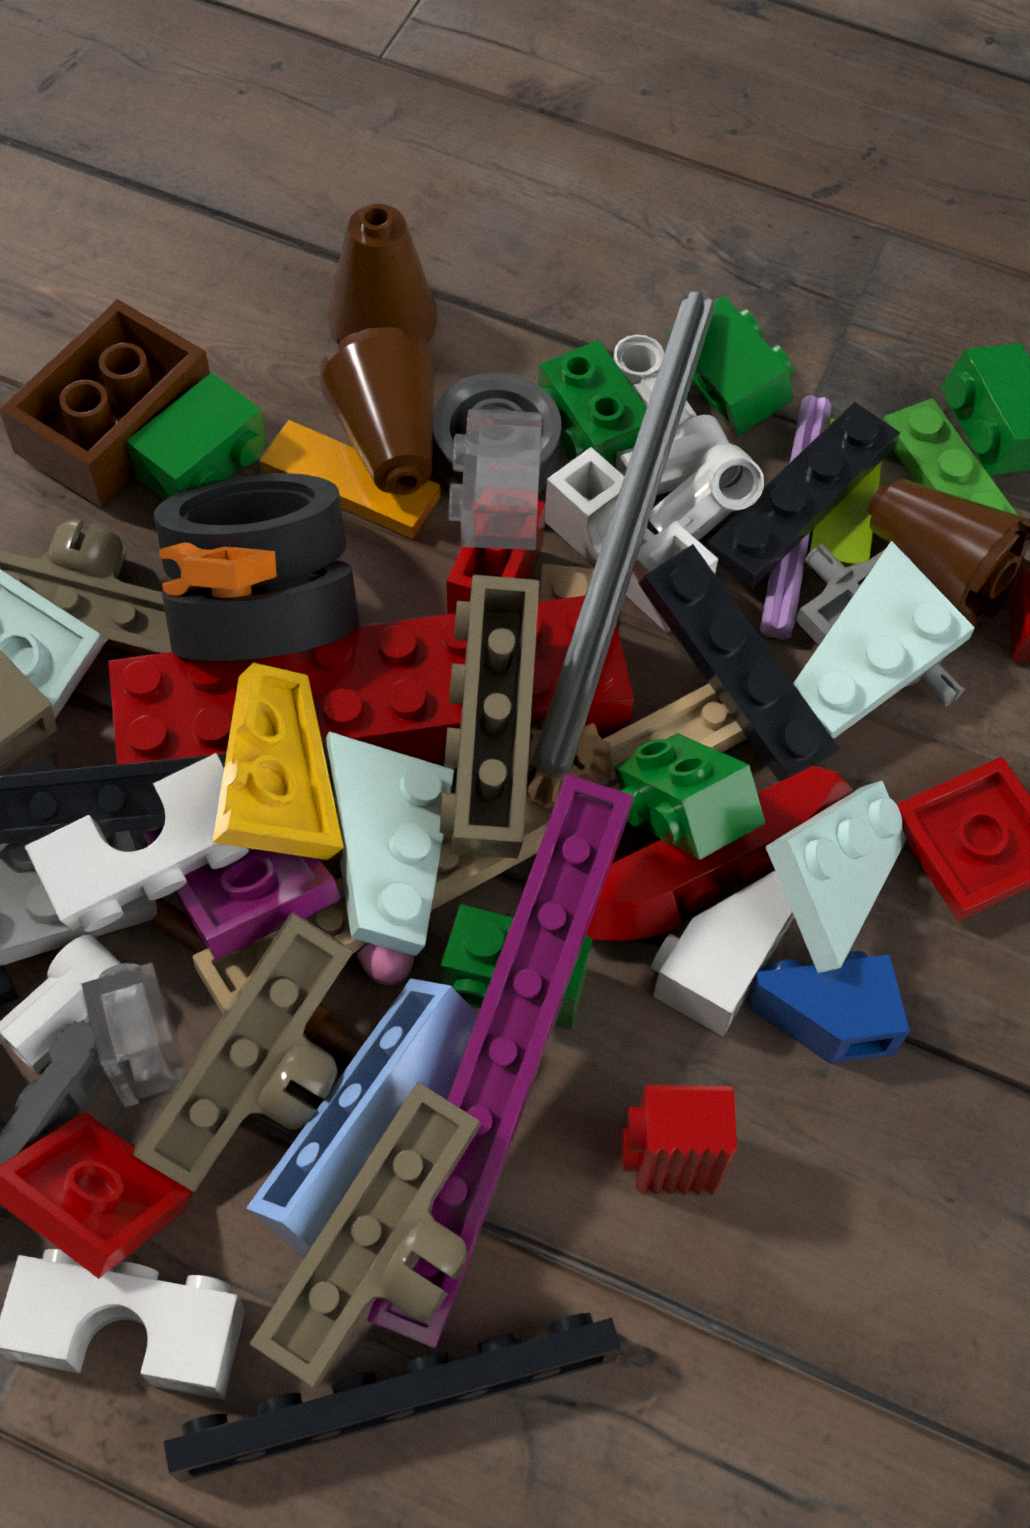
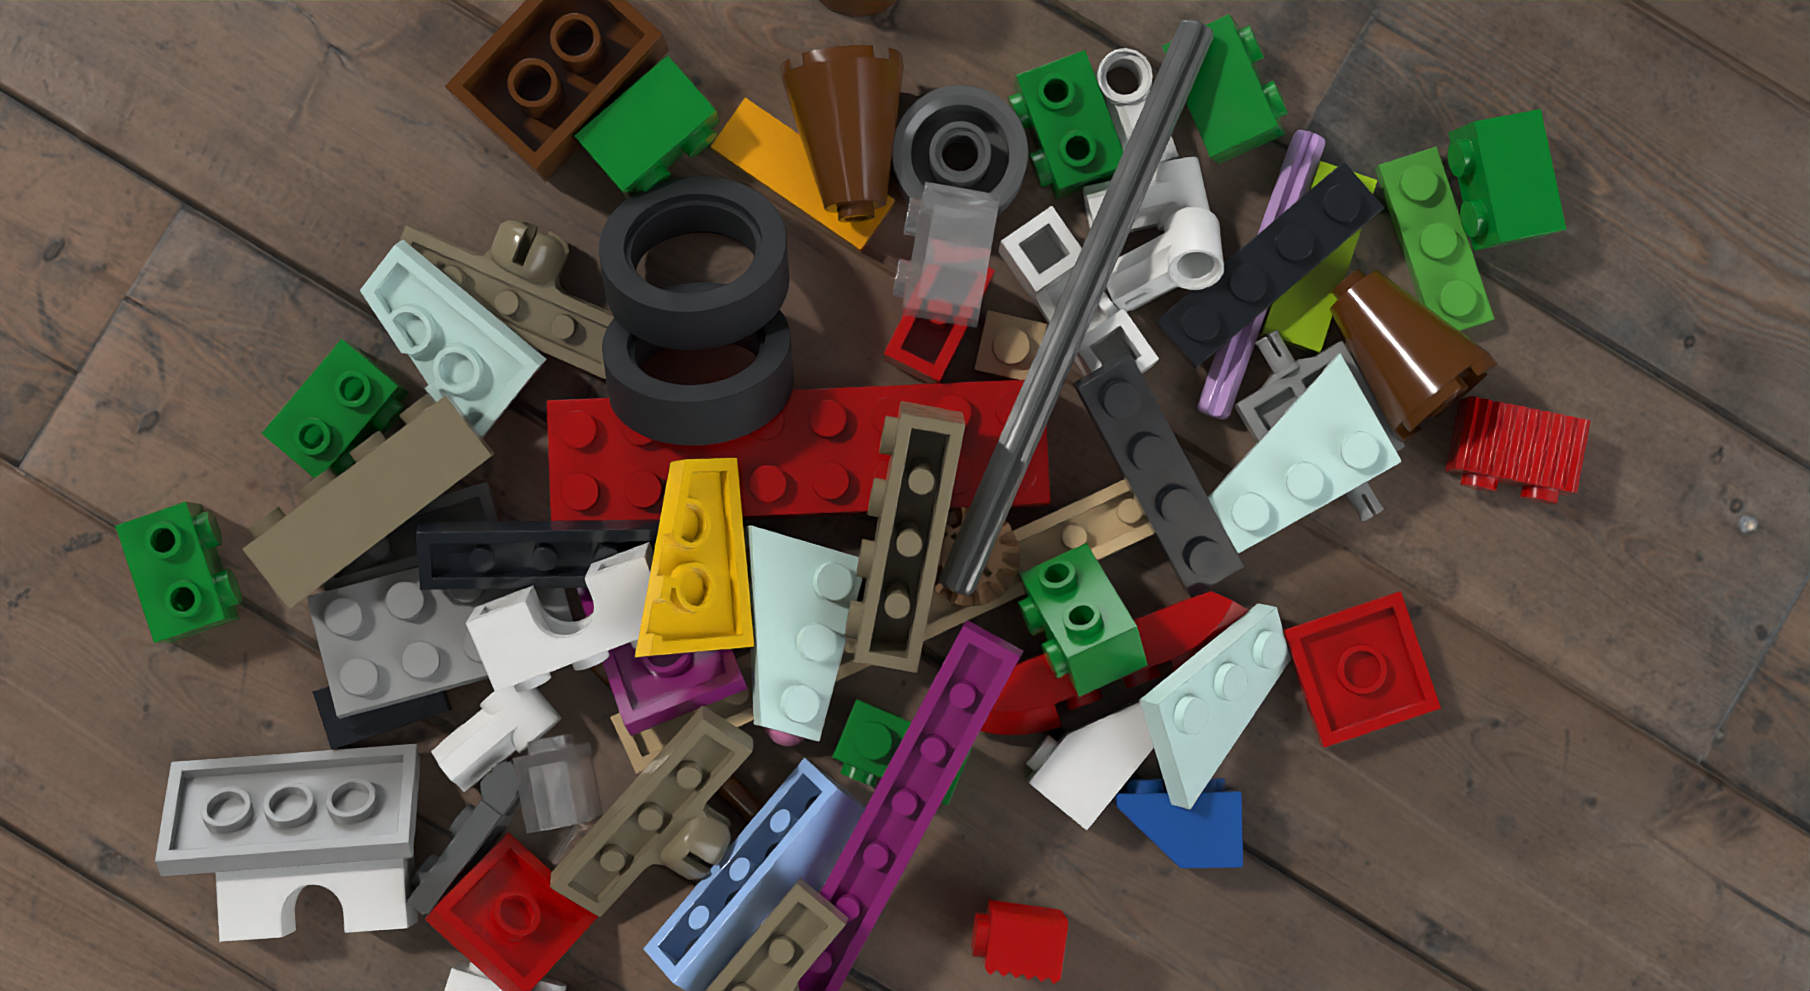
camera: 10 degrees right, 25 degrees up
(223, 569) = (658, 355): orange plate -> none

